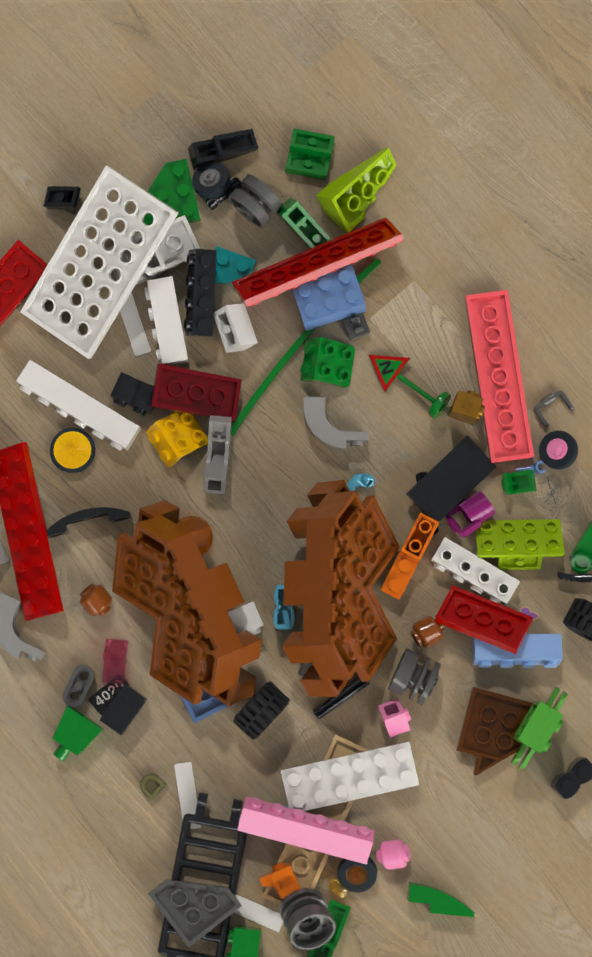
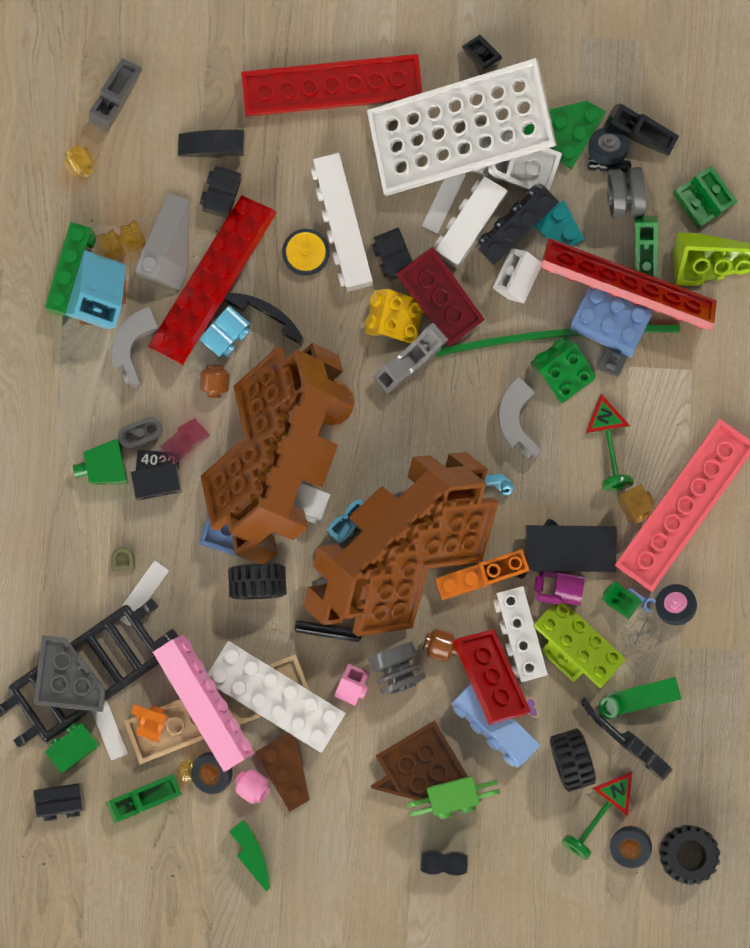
camera: 50 degrees right, 0 degrees up
(70, 559) = (226, 332): none -> medium azure brick
(307, 919) = (140, 768): dark grey wheel -> none
(404, 820) = (285, 769): none -> reddish brown wing
(549, 399) = (706, 559): dark grey piece -> none

